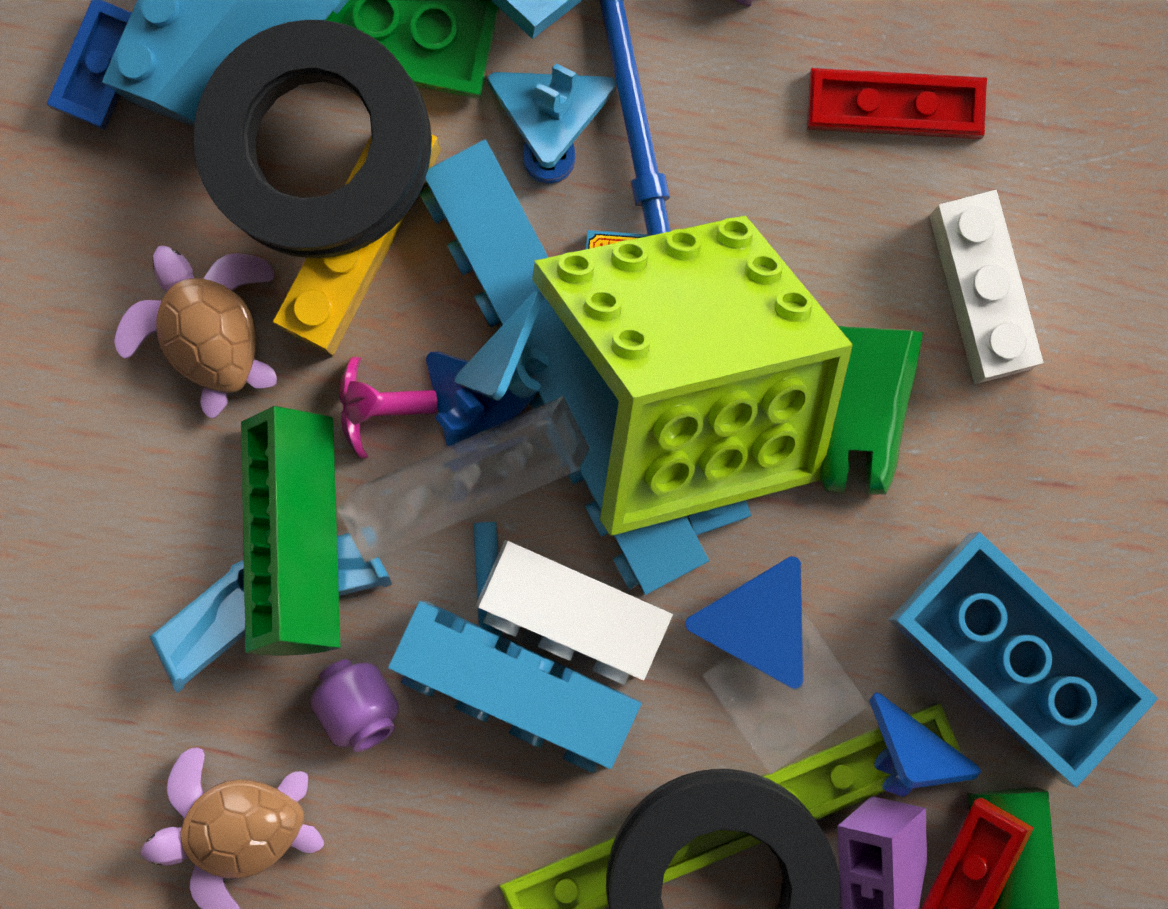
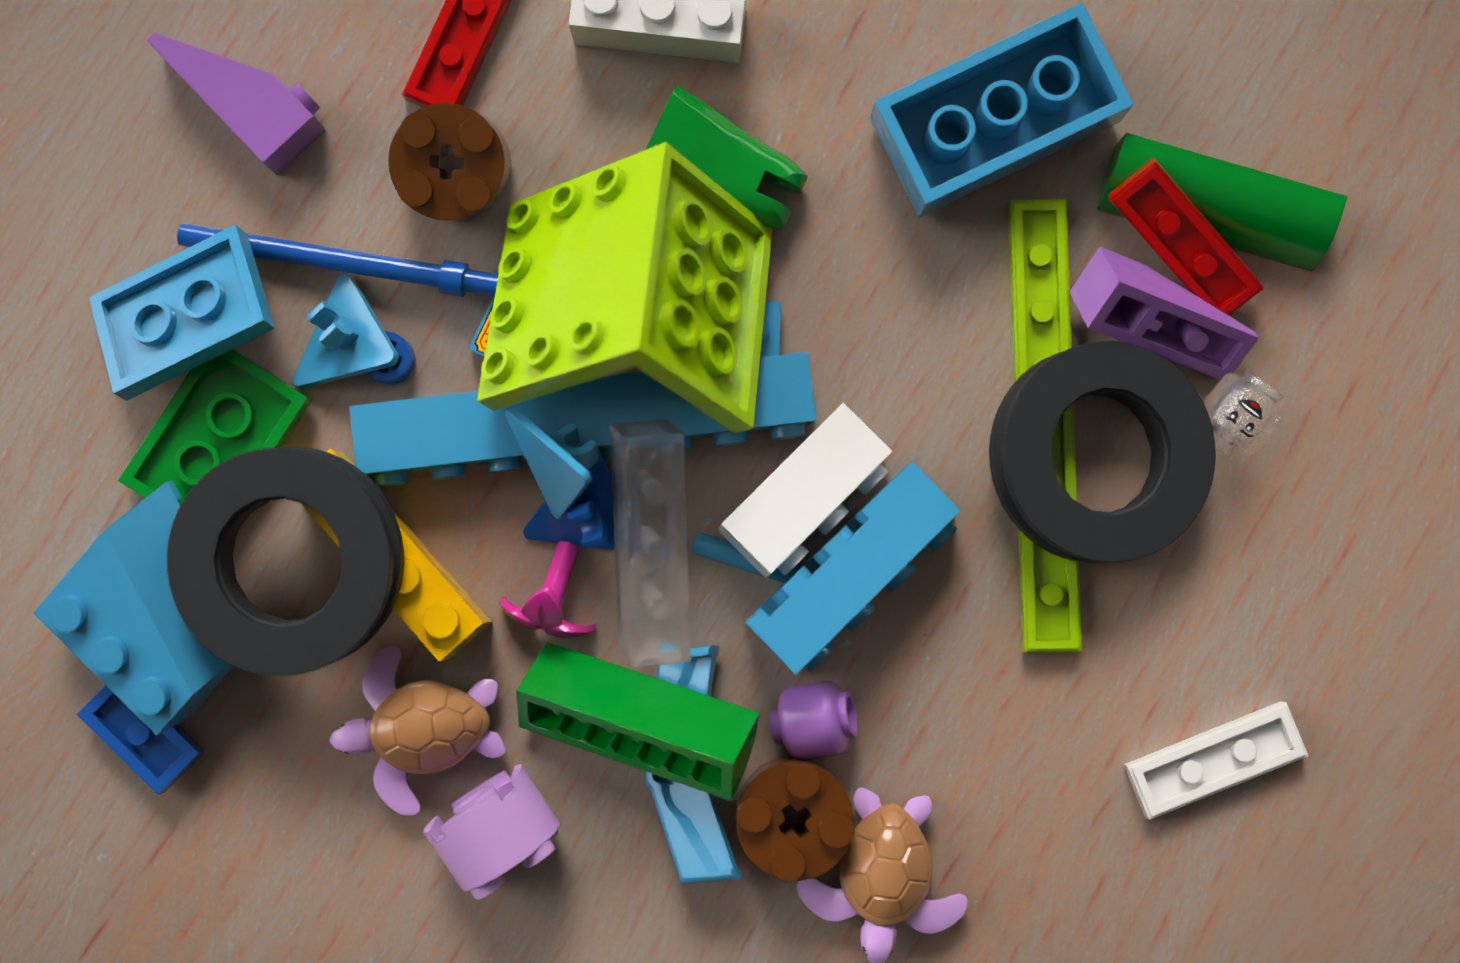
camera: 65 degrees left, 0 degrees up
(131, 437) = (494, 831): none -> lavender brick
(219, 731) = (787, 851): none -> reddish brown brick
(730, 125) = (428, 136): none -> reddish brown brick
(760, 623) = (880, 329): blue piece -> none
(782, 719) = (947, 331): clear plate -> none
(915, 753) = (1049, 237): blue piece -> none

